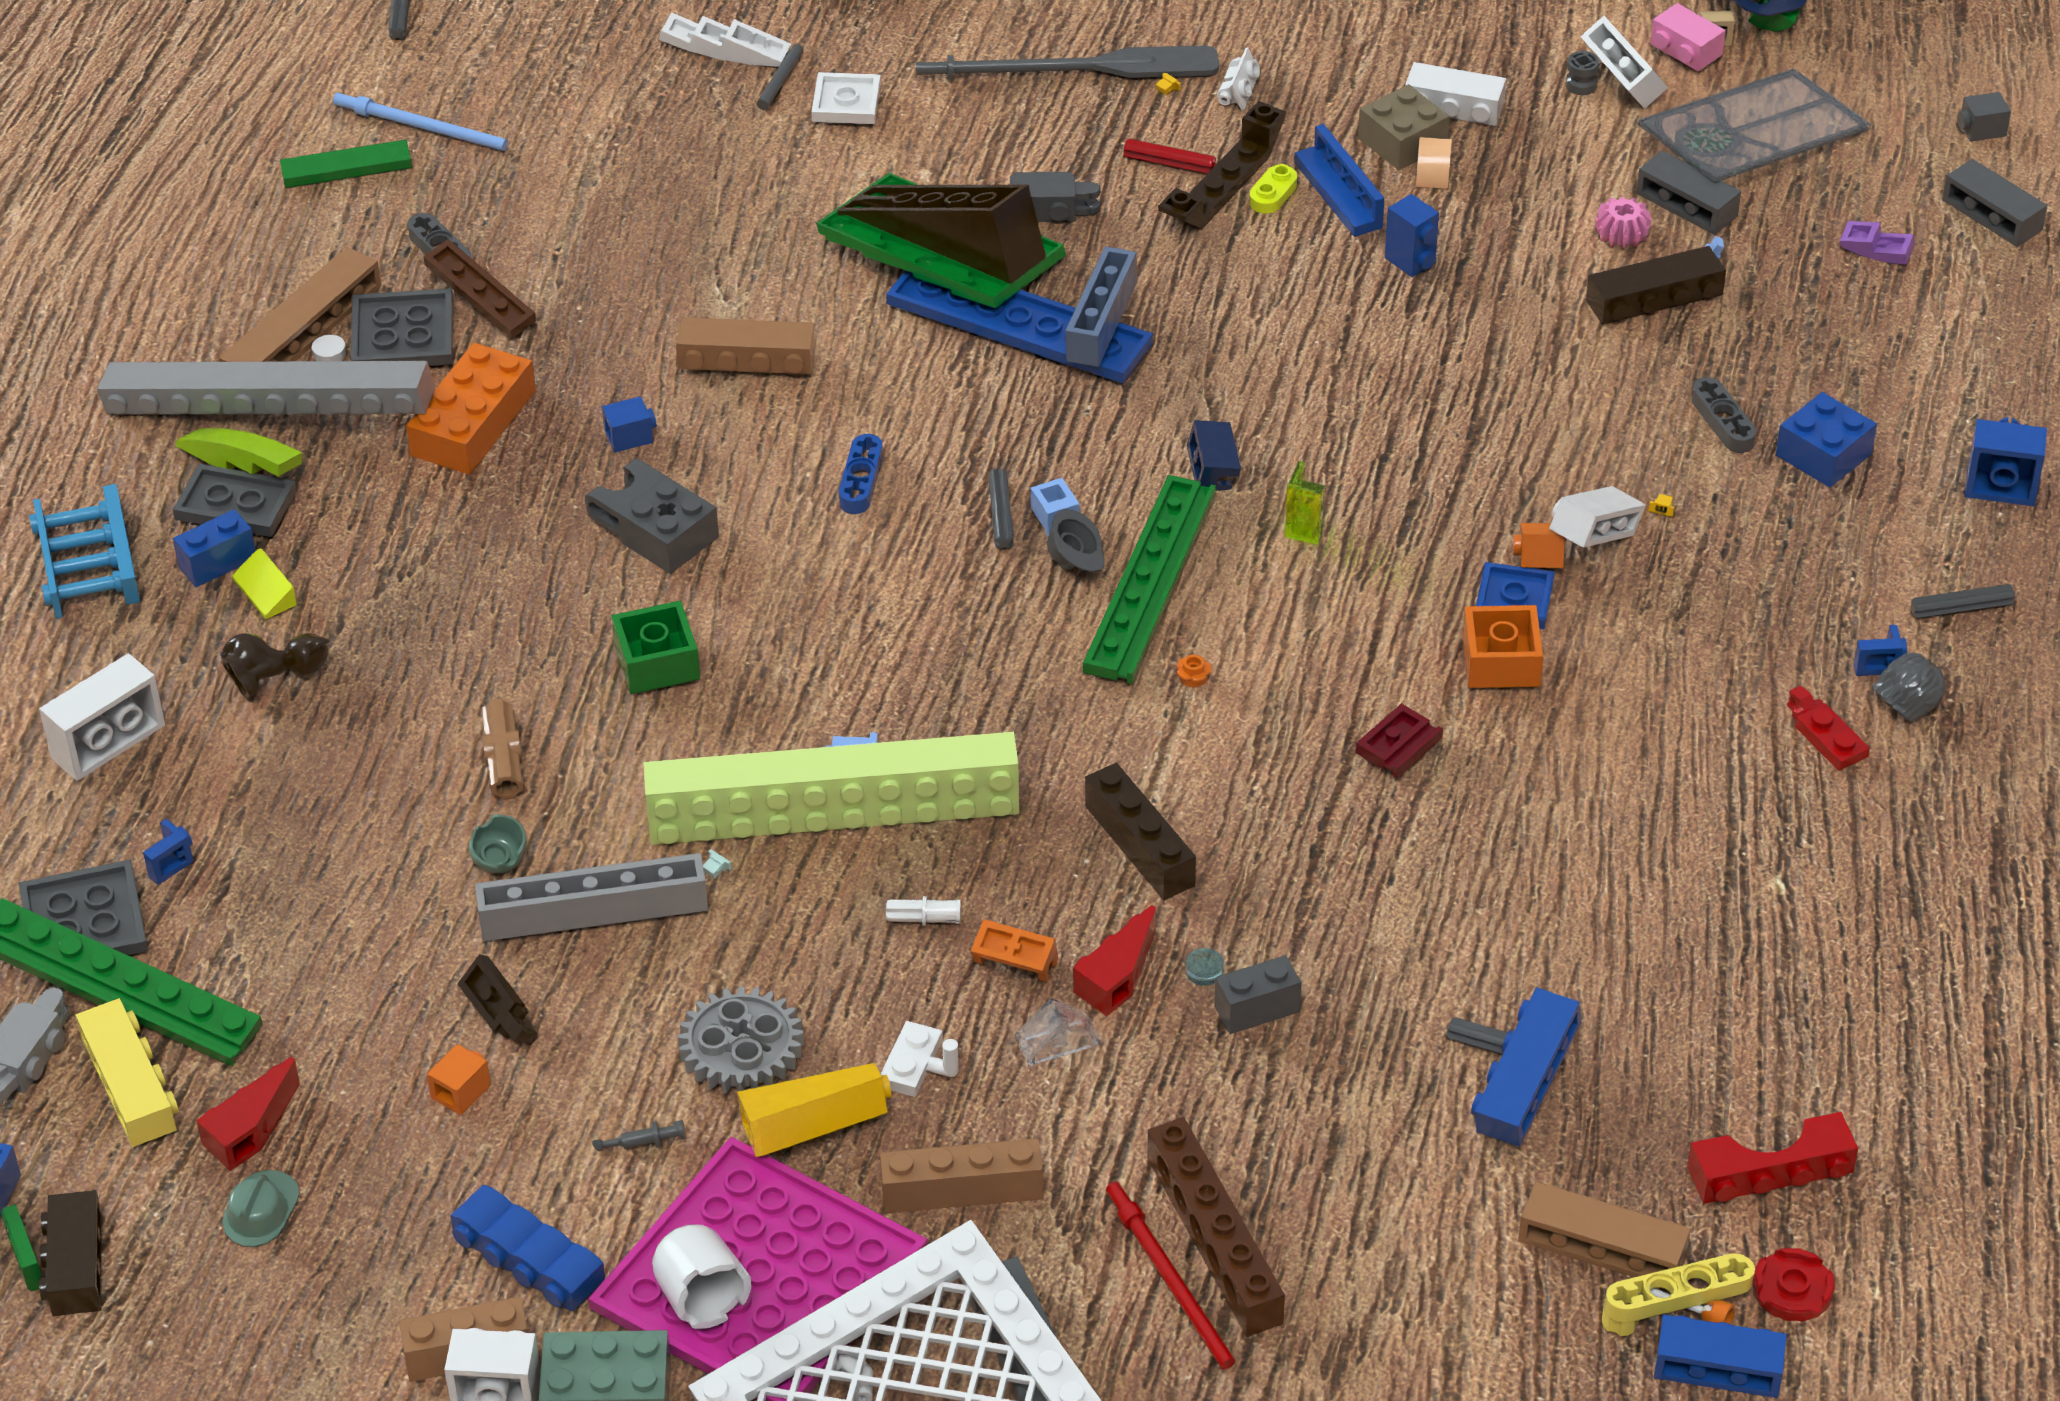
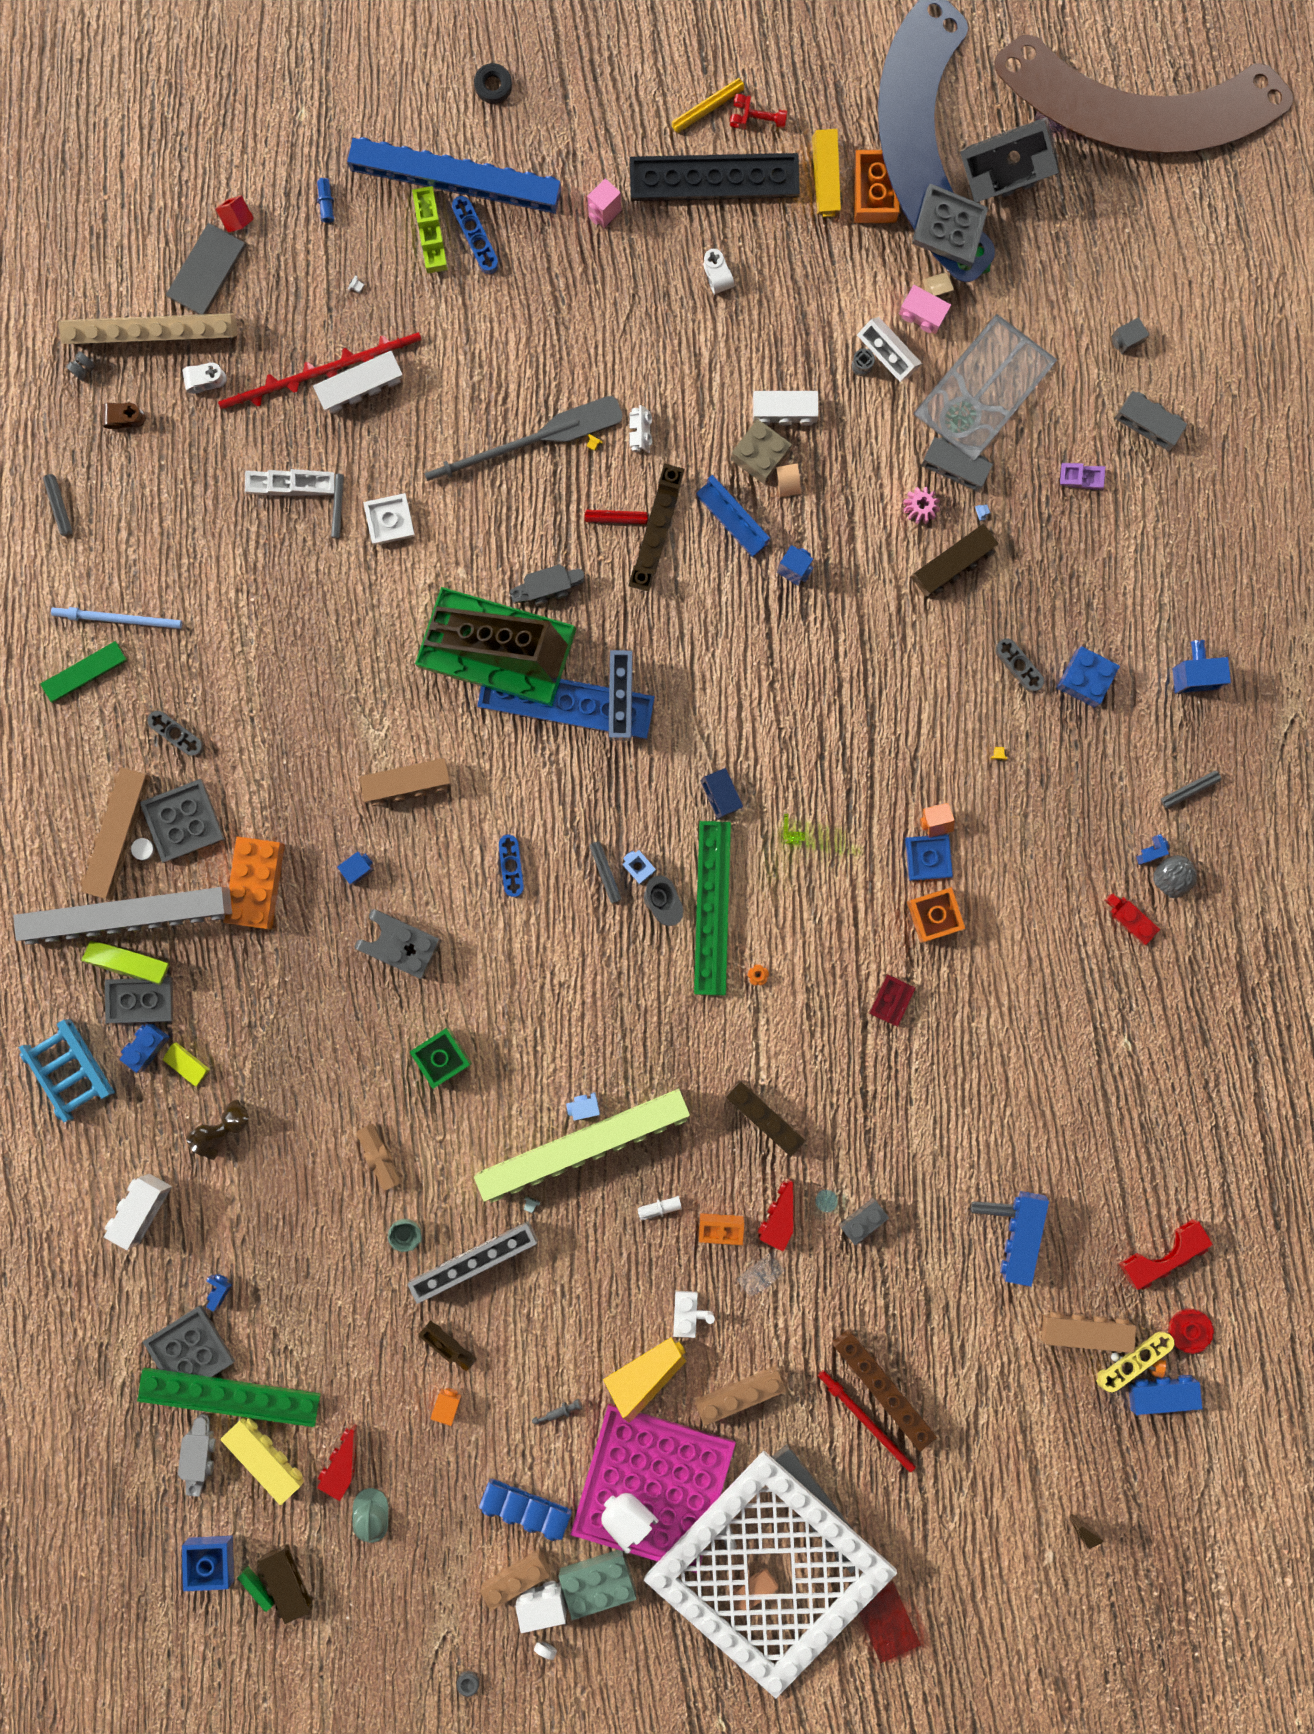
camera: 20 degrees left, 40 degrees up
(479, 289) = (218, 775): reddish brown plate -> none
(740, 1039) = (586, 1354): light grey gear -> none
(1273, 189) = (690, 528): neon yellow plate -> none
(1596, 516) = (968, 795): white brick -> none

